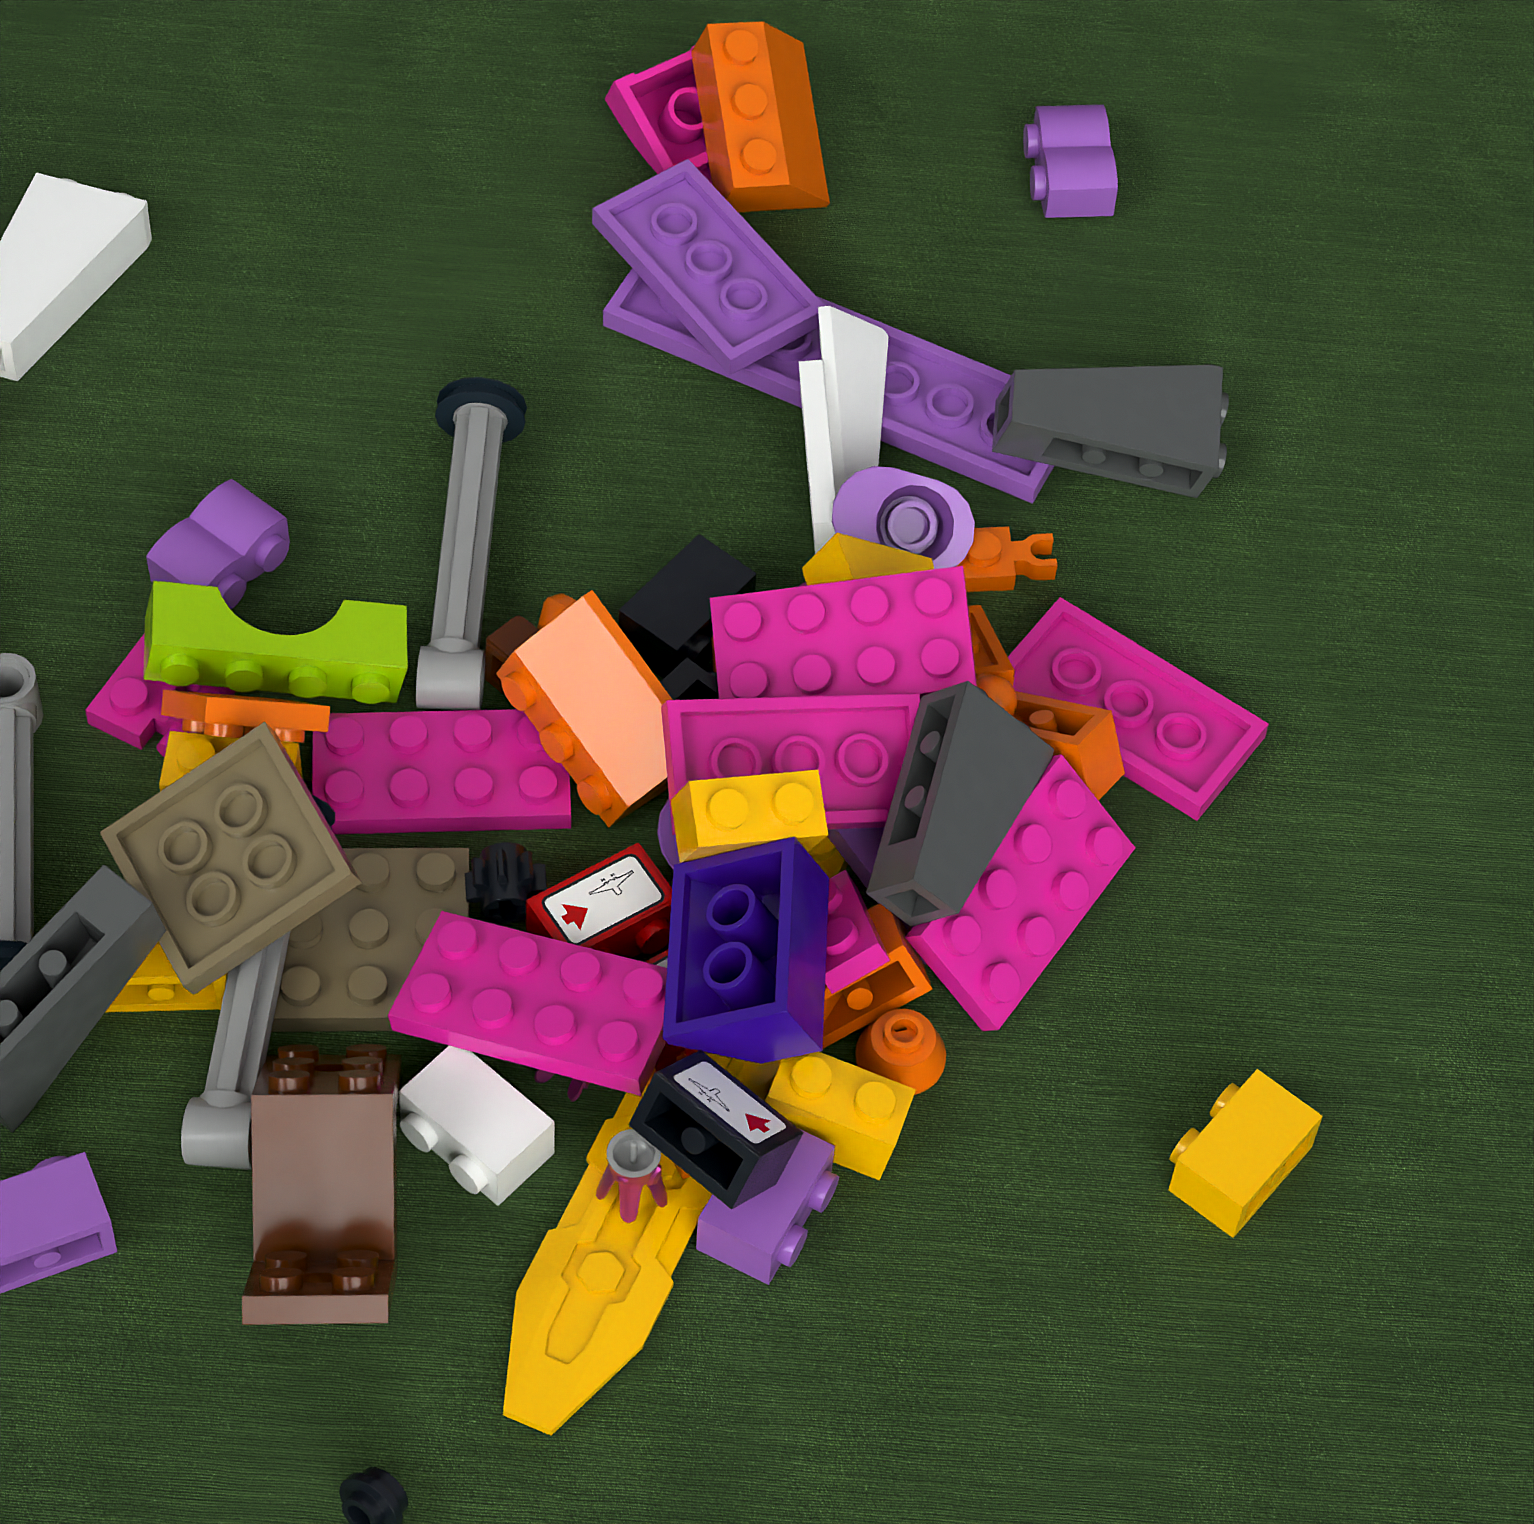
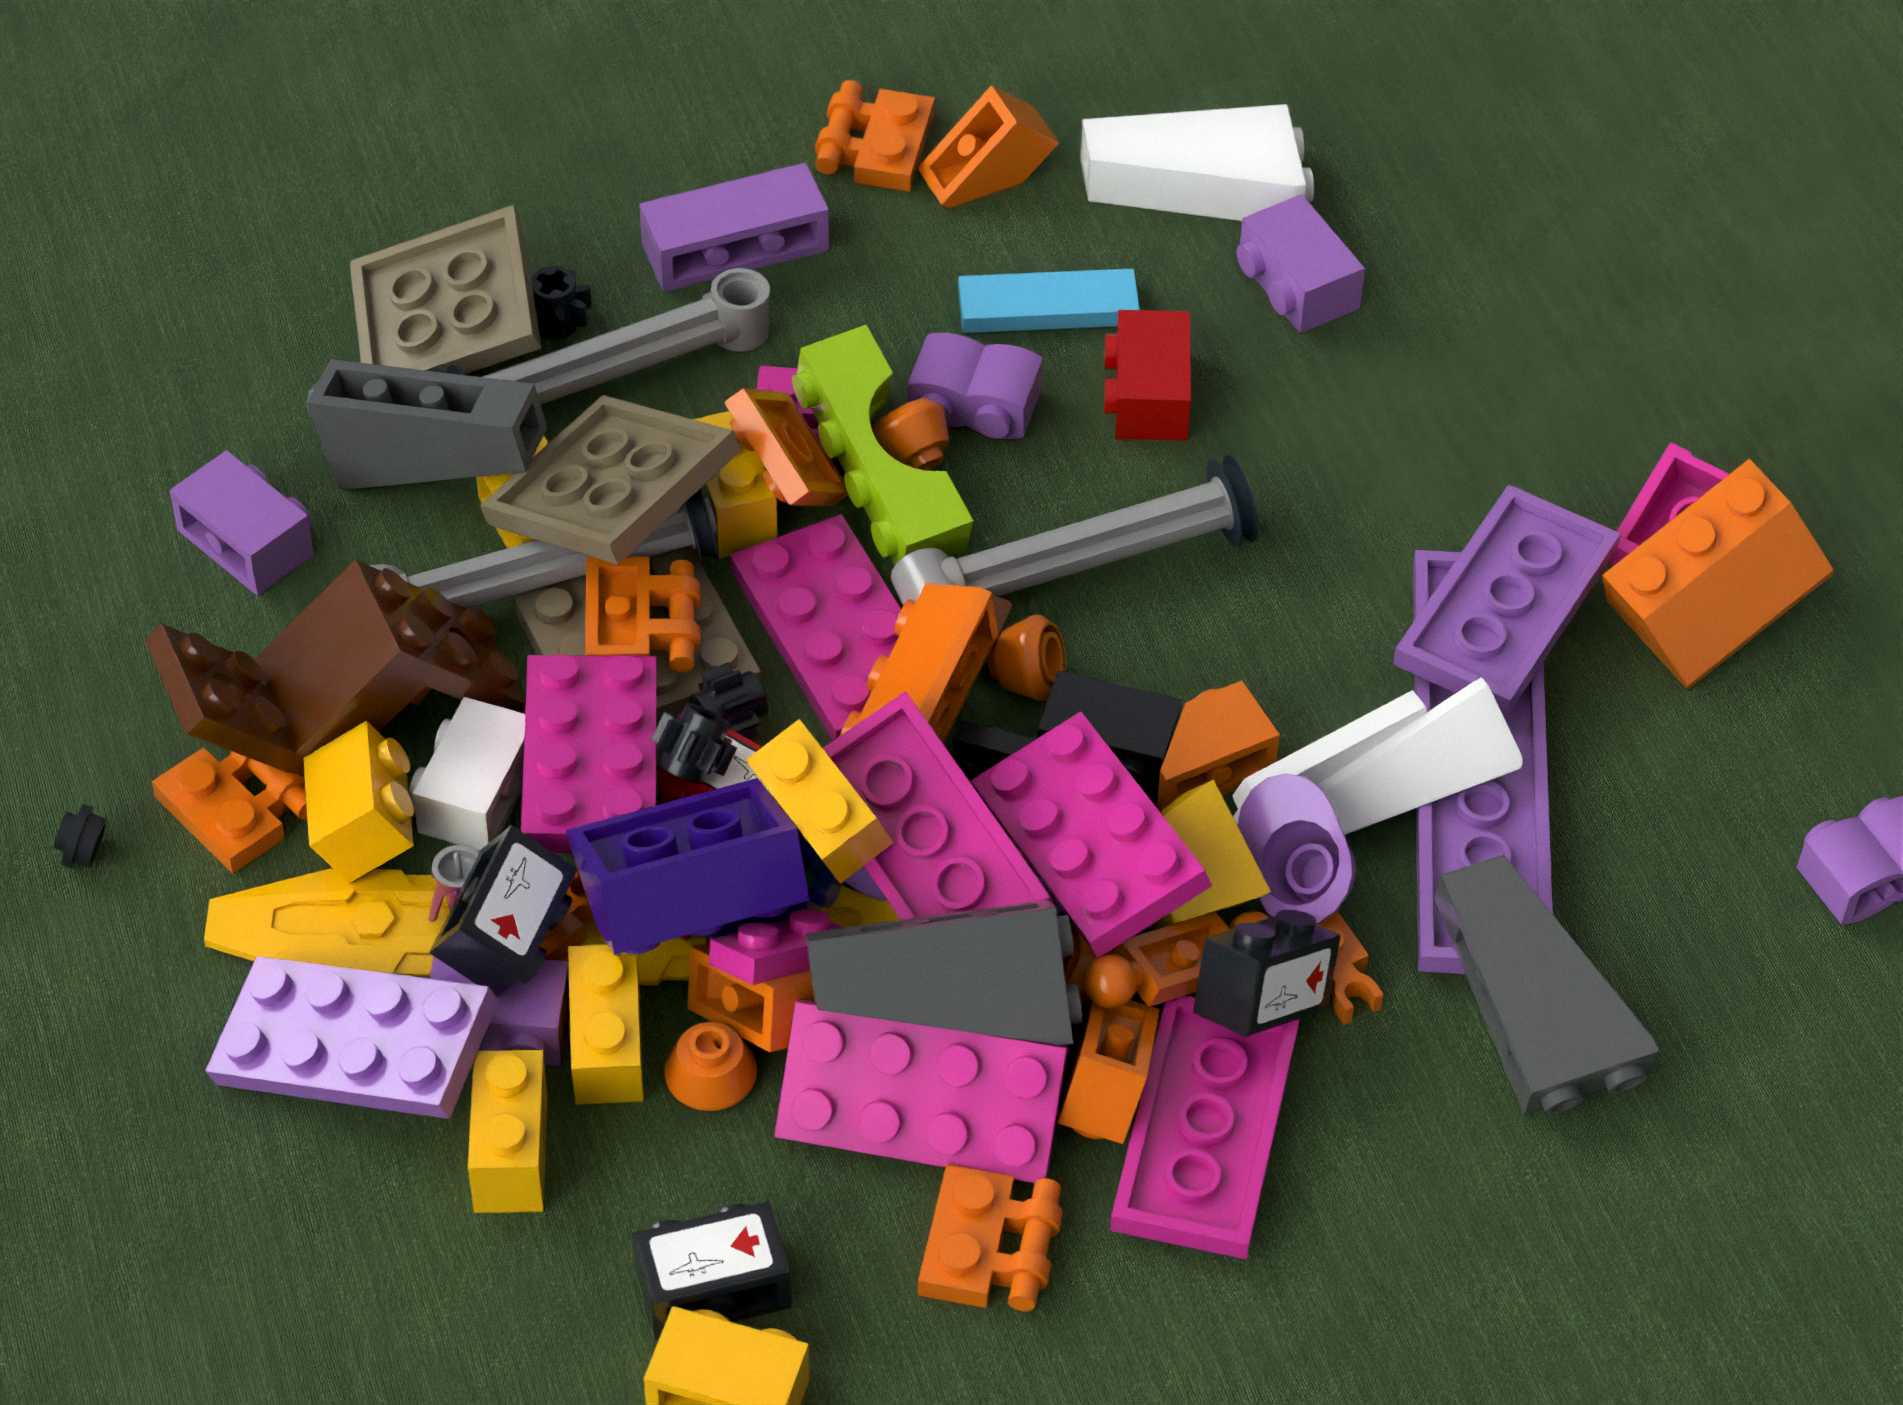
camera: 70 degrees right, 5 degrees down
(134, 458) = (1045, 300): none -> medium azure tile
(218, 251) = (1300, 264): none -> medium lavender brick
(263, 606) = (915, 434): none -> orange cone
(287, 412) = (1151, 375): none -> red brick
(376, 927) = (620, 610): none -> orange plate
(392, 1366) = (223, 813): none -> orange plate
(478, 1225) = (358, 801): none -> yellow brick
(587, 908) = (694, 743): none -> black gear
(741, 523) = (1220, 739): none -> orange slope
(758, 1324) = (353, 1036): none -> plate
(913, 1232) = (508, 1131): none -> yellow brick
(1027, 591) = (1266, 973): none -> black brick
(1127, 1125) = (714, 1264): none -> brick
(1160, 925) = (968, 1234): none -> orange plate

